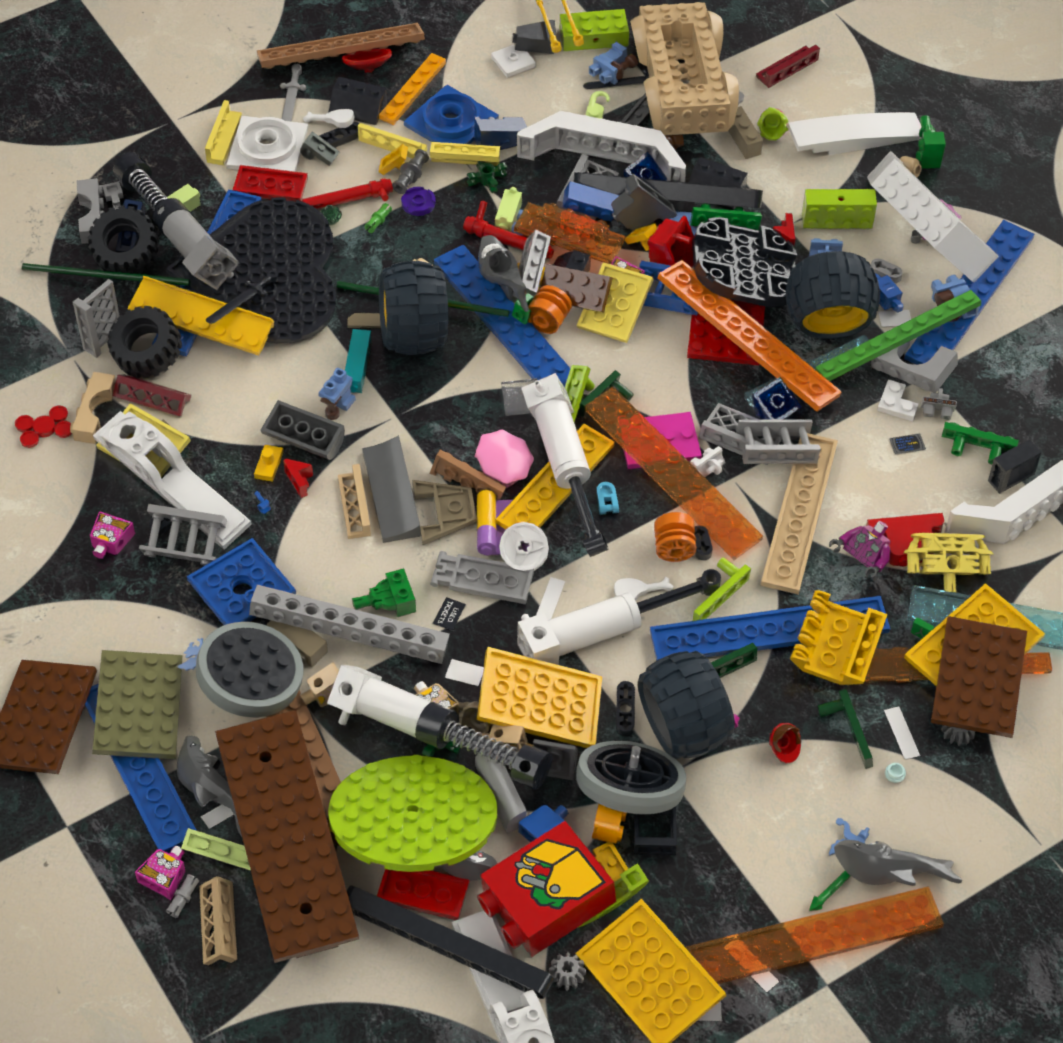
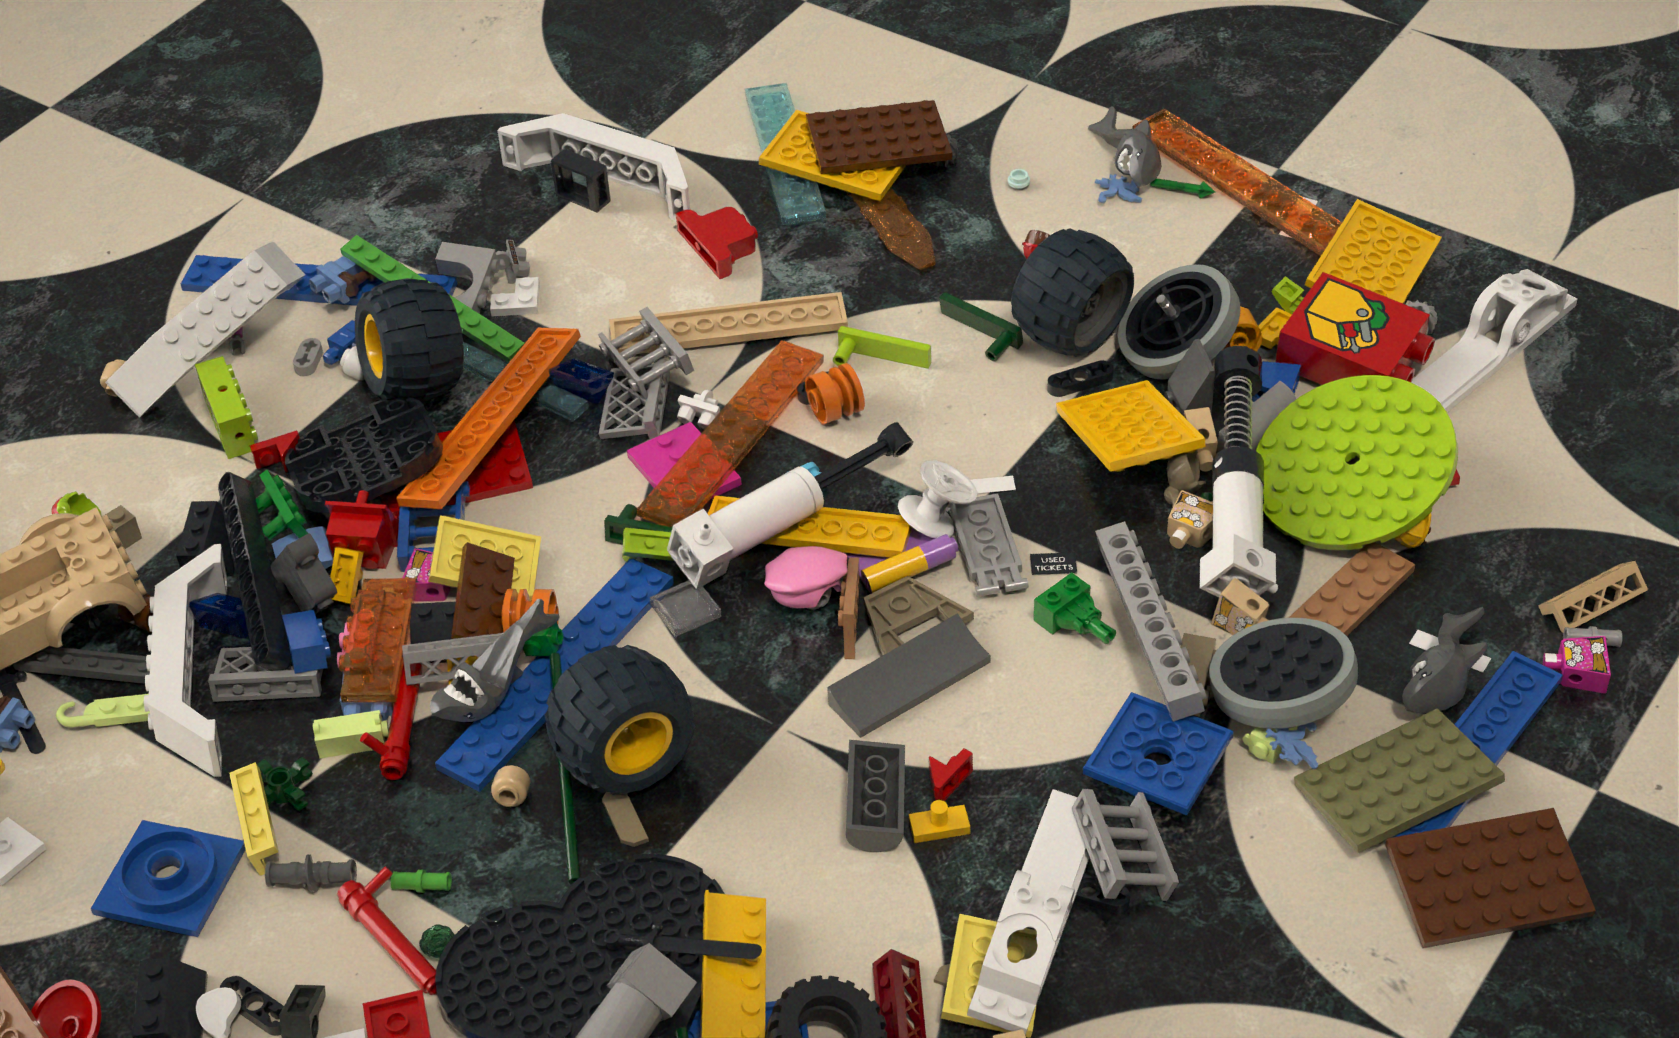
camera: 110 degrees left, 10 degrees down
(110, 534) = (1172, 937): torso -> none
(215, 848) = (1514, 618): yellowish green plate -> none
(264, 504) = (1012, 795): blue hand -> none
(286, 837) = (1465, 544): reddish brown piece -> none
(337, 394) = (797, 765): medium blue hips -> none
(358, 358) = (714, 792): teal brick -> none
(361, 500) = (946, 699): tan fence -> none
(387, 140) = (246, 928): light yellow fence -> none
(393, 159) = (297, 897): yellow tile -> none
(412, 89) = (100, 952): light orange plate -> none
(418, 201) = (367, 848): dark purple tile -> none
(449, 943) = (1467, 405): black beam -> none
(464, 672) = (1125, 513): white sticker -> none
(498, 131) = (193, 795): dark blue wedge -> none
(595, 623) = (1050, 449): white piece -> none
(638, 588) = (918, 424): white piece -> none
(730, 633) = (908, 305): blue plate -> none
(820, 246) = (294, 410): medium blue hips -> none
(837, 641) = (898, 230): yellow slope -> none
(844, 704) = (969, 222): dark green piece -> none
(854, 132) = (62, 441): white slope -> none
(867, 546) = (756, 252): magenta torso -> none
(902, 732) = (965, 191): white sticker -> none
(907, 443) = (576, 279): sticker -> none
(921, 628) = (834, 200): green tile -> none
(930, 146) = (70, 361): green brick -> none
(953, 544) = (735, 193): light yellow piece -> none
(979, 438) = (546, 233): green plate -> none

